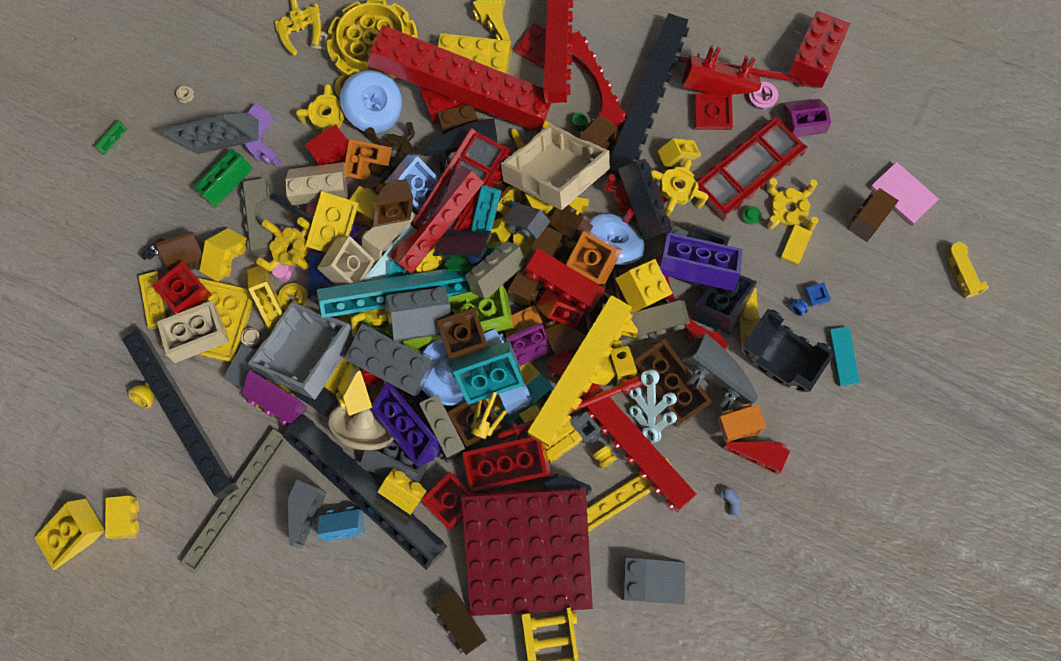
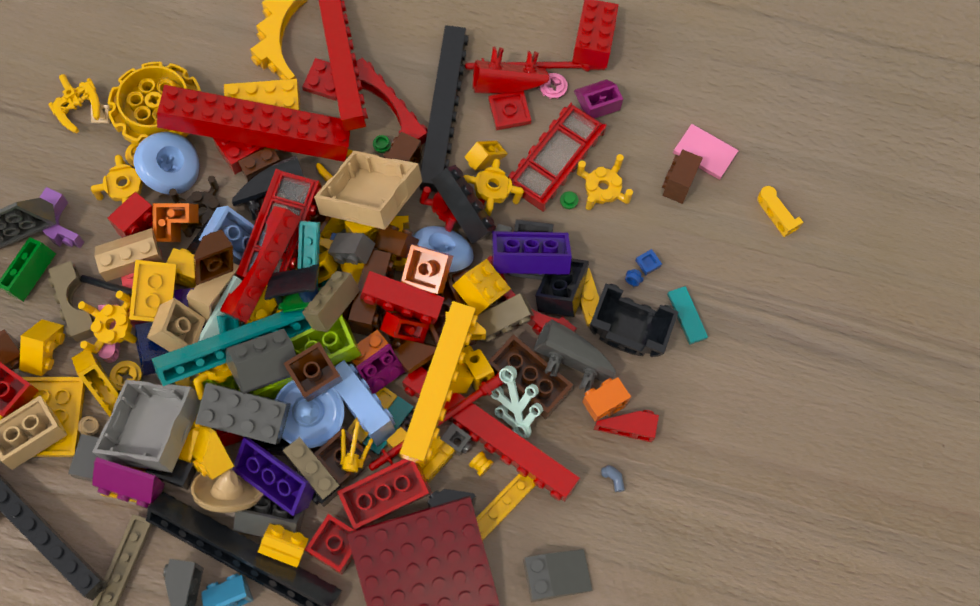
camera: 25 degrees left, 5 degrees down
(488, 372) = (346, 403): teal slope -> none
(796, 245) = (617, 220): yellow tile -> none

